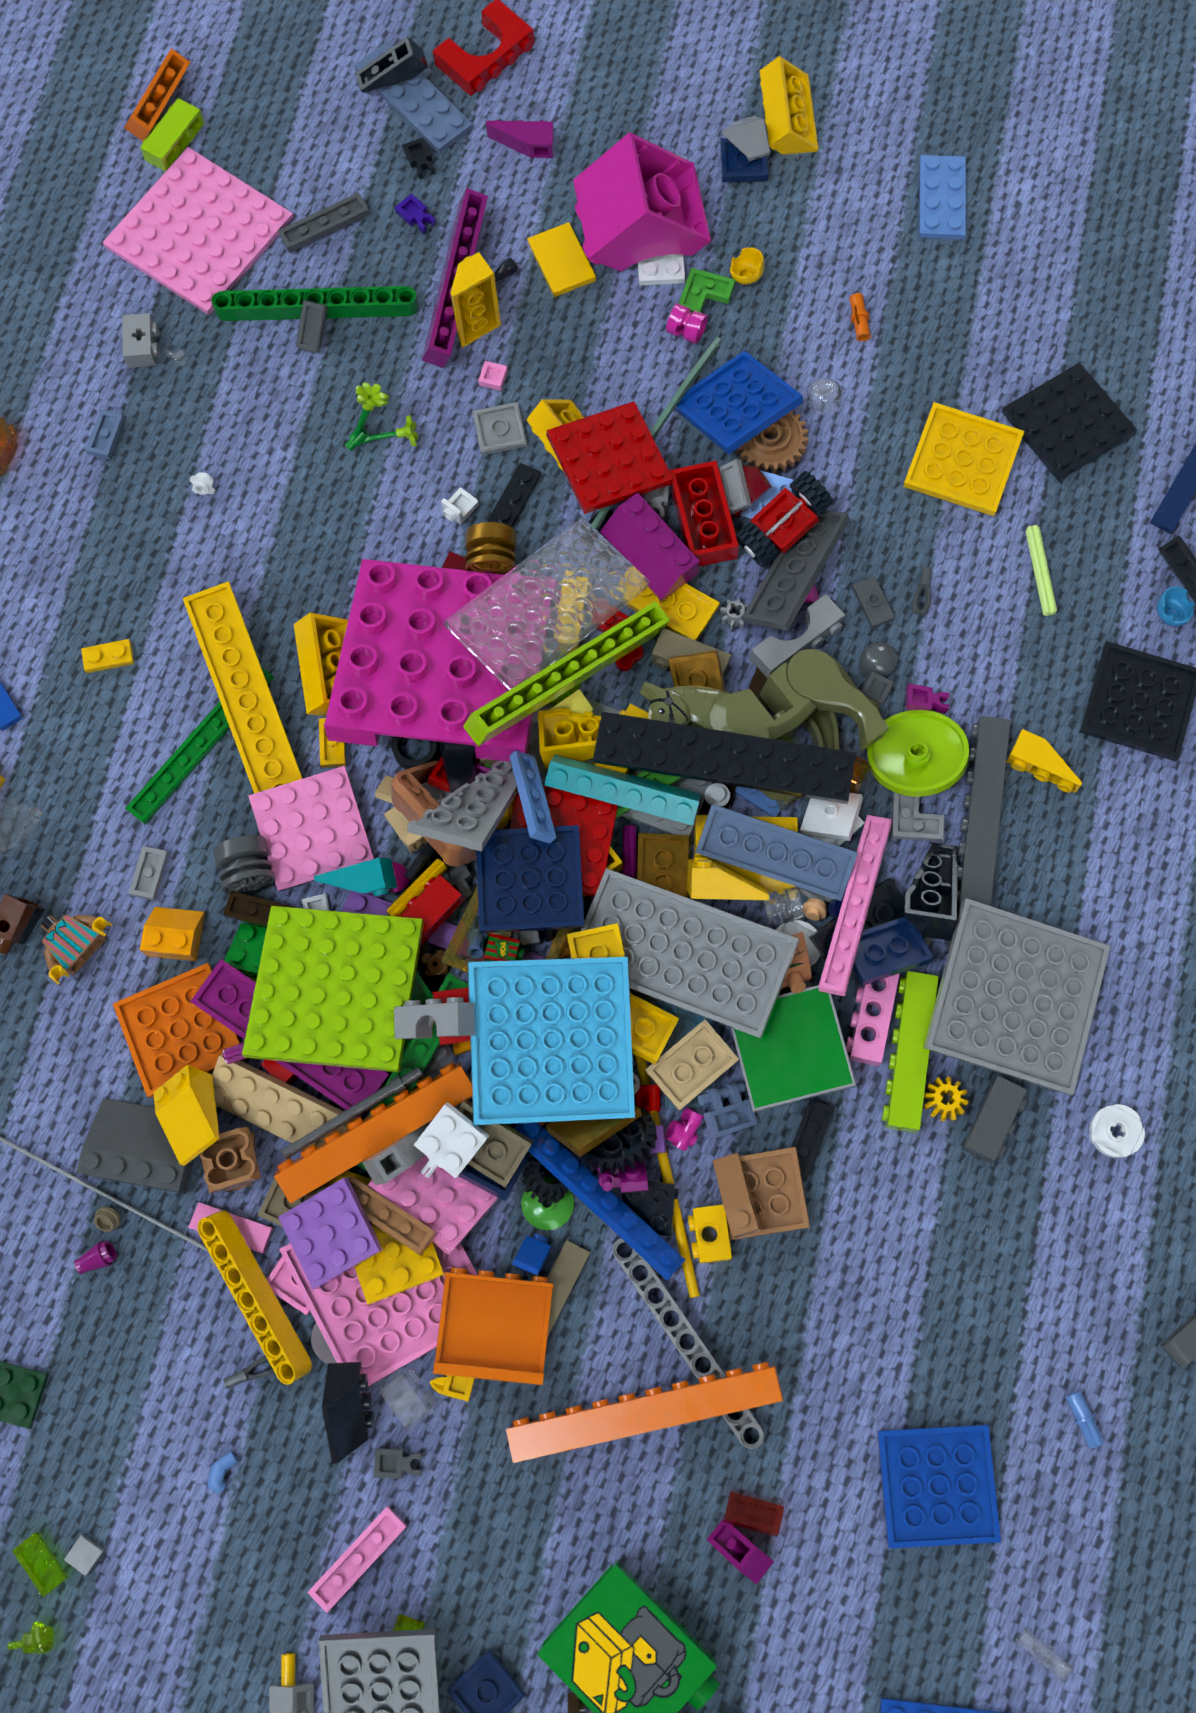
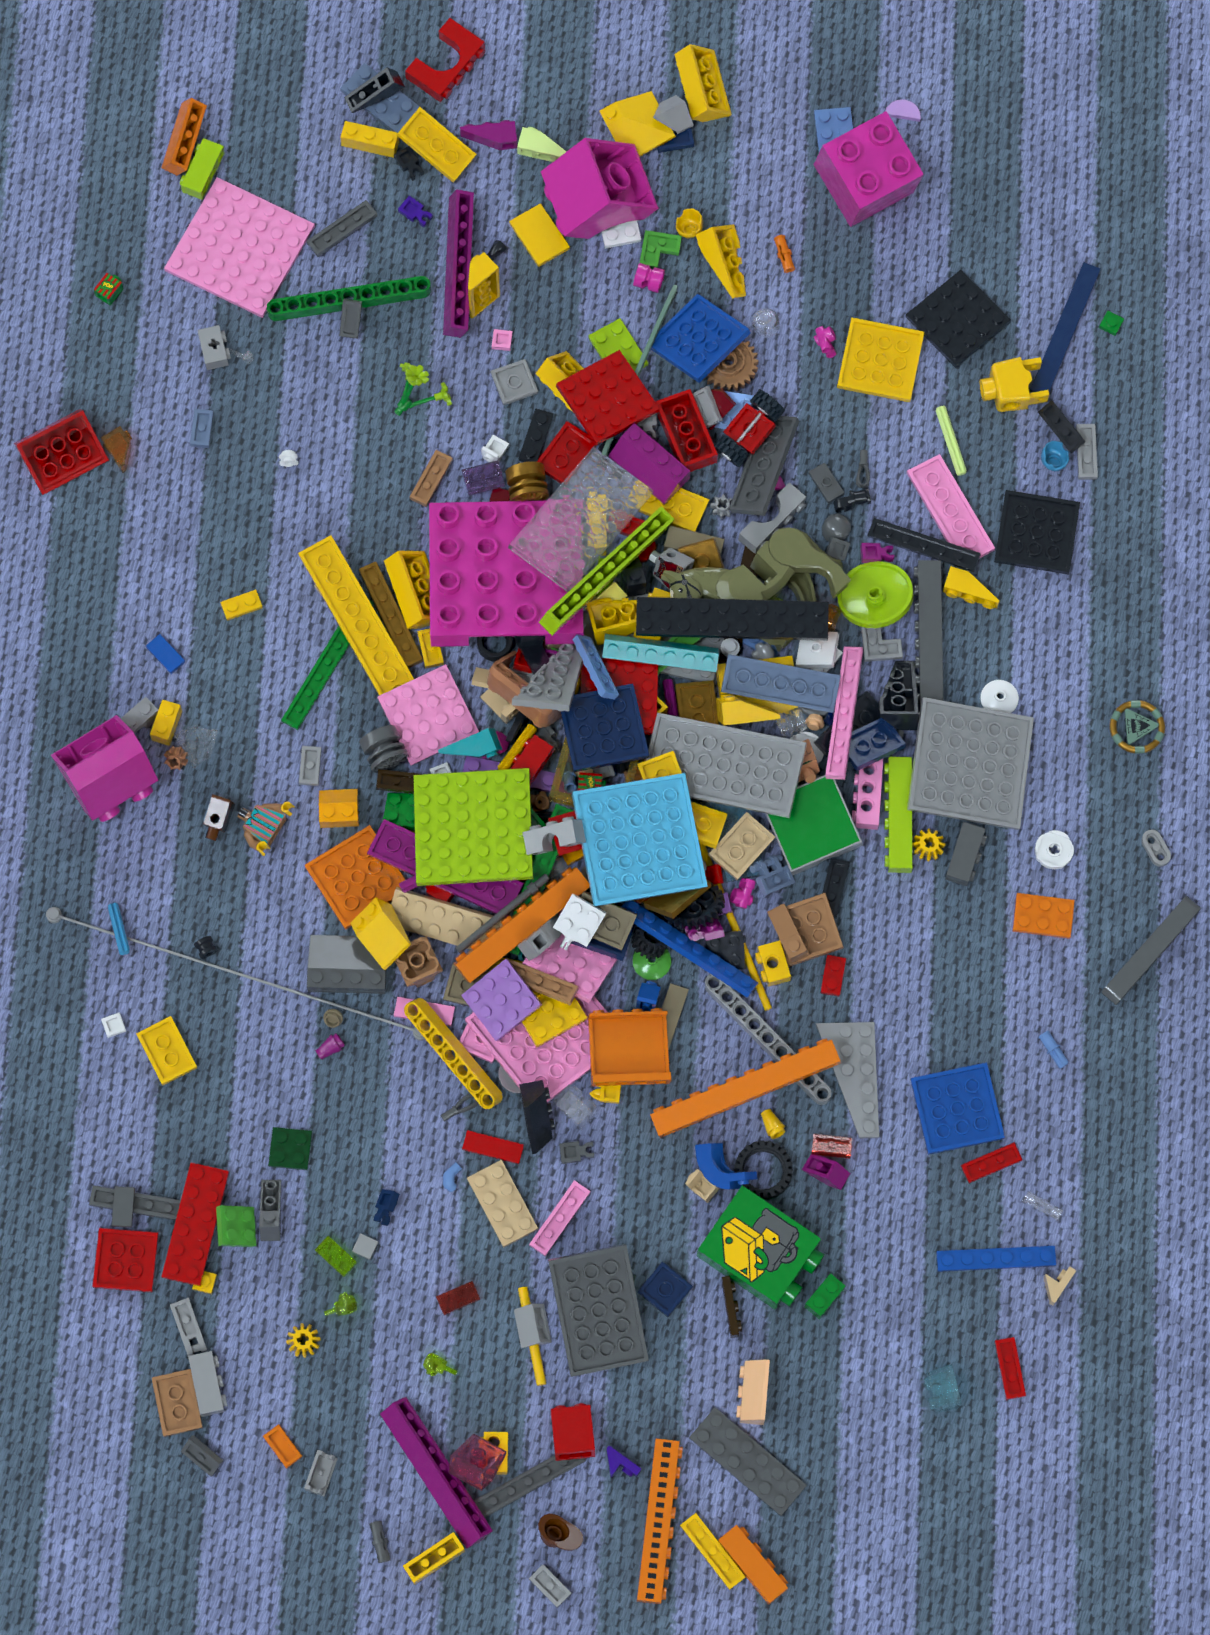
camera: 15 degrees left, 0 degrees up
(30, 257) = (108, 288): none -> green brick
(123, 1499) = (385, 1204): none -> dark blue plate
(194, 1656) = (458, 1298): none -> clear red plate
(283, 1522) = (502, 1203): none -> tan plate
(286, 1437) = (493, 1147): none -> red tile
(290, 694) = (390, 614): none -> pearl gold plate
(374, 530) = (431, 478): none -> medium nougat plate
(376, 124) = (369, 139): none -> yellow brick
(437, 538) = (483, 478): none -> clear purple hinge
(454, 138) = (436, 144): none -> yellow plate
(546, 518) = (565, 452): none -> red plate
(563, 1544) = (701, 1186): none -> tan bracket
(573, 152) = (538, 145): none -> yellowish green slope
(586, 1529) = (715, 1170): none -> blue arch
(606, 689) = (634, 579): none -> black slope
(620, 1547) = (777, 1151): none -> black tyre
(637, 388) = (615, 338): none -> lime plate
(657, 672) = (671, 561): none -> light grey torso
(675, 1467) = (772, 1124): none -> yellow cone
(699, 139) = (633, 122): none -> yellow slope
(759, 807) = (762, 651): none -> light grey piece
(780, 300) = (720, 249): none -> yellow wedge
(790, 1262) = (833, 975): none -> red plate
(804, 1416) = (856, 1072): none -> light grey wing
(894, 425) = (824, 338): none -> dark pink plate
(908, 625) = (853, 499): none -> black connector
(976, 1574) = (991, 1162): none -> red tile
(981, 220) = (868, 169): none -> dark pink piece
(991, 697) = (924, 545): none -> black plate
(1030, 168) = (903, 110): none -> lavender tile
(1030, 658) = (949, 506): none -> bright pink plate
(1052, 910) = (990, 700): none -> white dish
(1091, 1221) = (1043, 915): none -> orange plate
(1128, 509) = (1009, 385): none -> yellow piece

